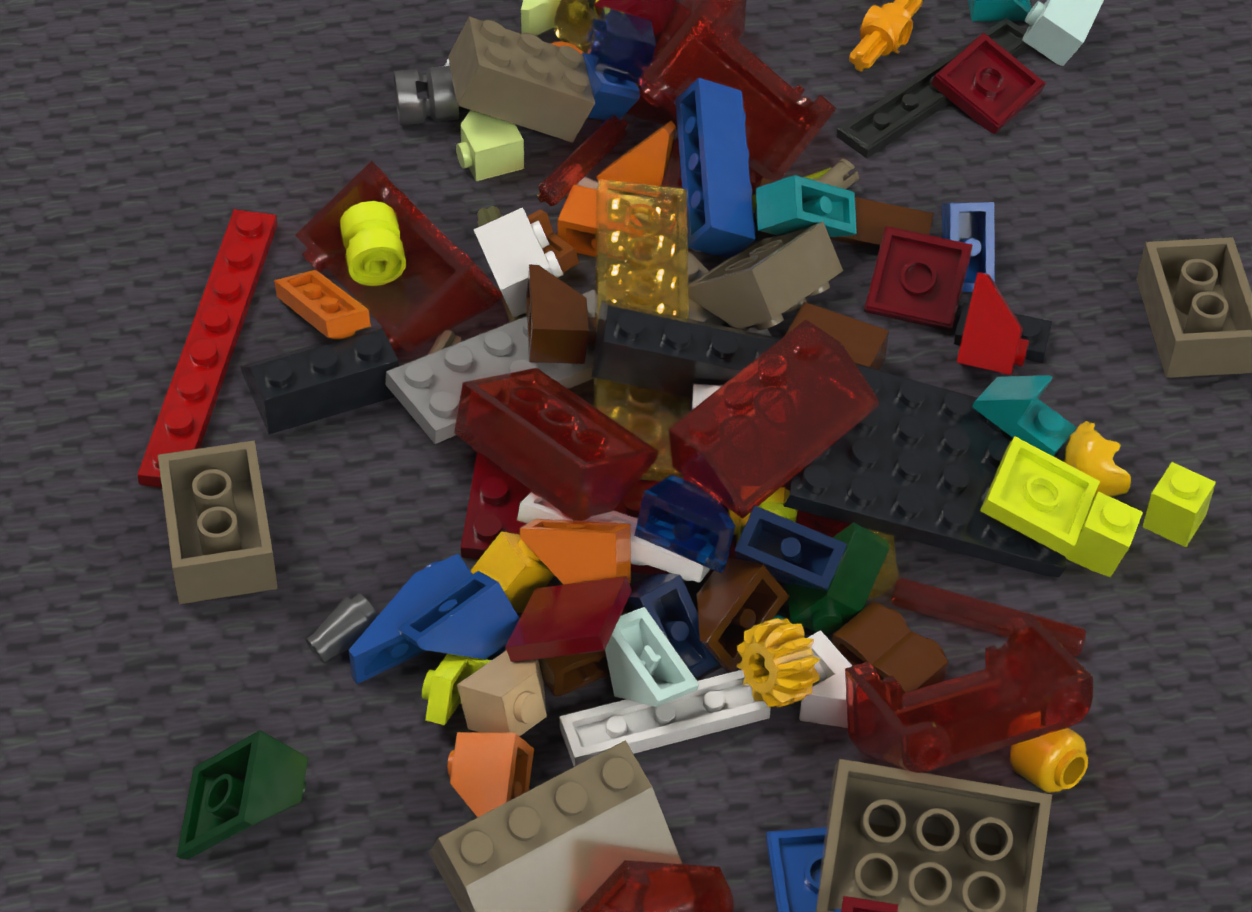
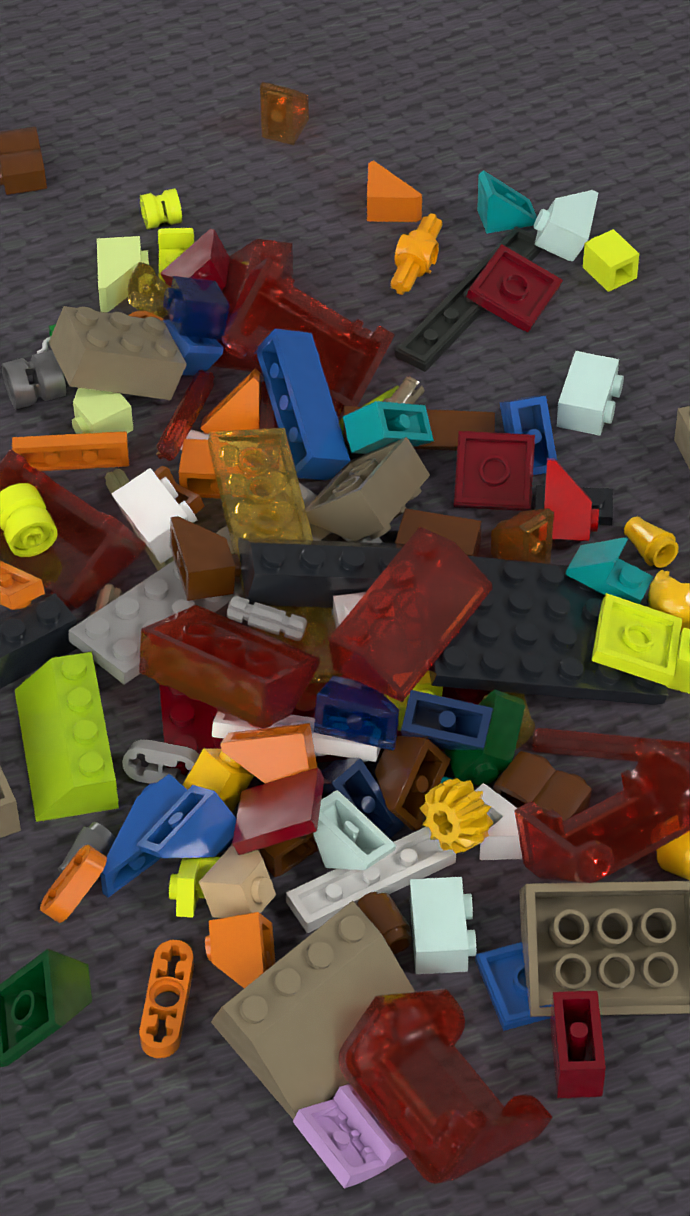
camera: 10 degrees left, 0 degrees up
(316, 660) = (73, 883): none -> orange beam
(356, 495) = (66, 739): none -> lime slope
(389, 794) = (159, 983): none -> orange beam
(449, 178) = (74, 450): none -> orange plate
(455, 533) = (158, 756): none -> light grey beam
(611, 396) = (266, 618): none -> light grey axle
(667, 772) = (387, 919): none -> reddish brown brick
(730, 789) = (440, 925): none -> light aqua brick
(935, 357) = (524, 537): none -> clear orange slope
(1047, 211) = (589, 393): none -> light aqua brick
(1085, 390) = (652, 542): none -> yellow cone
(1105, 70) = (610, 260): none -> neon yellow brick

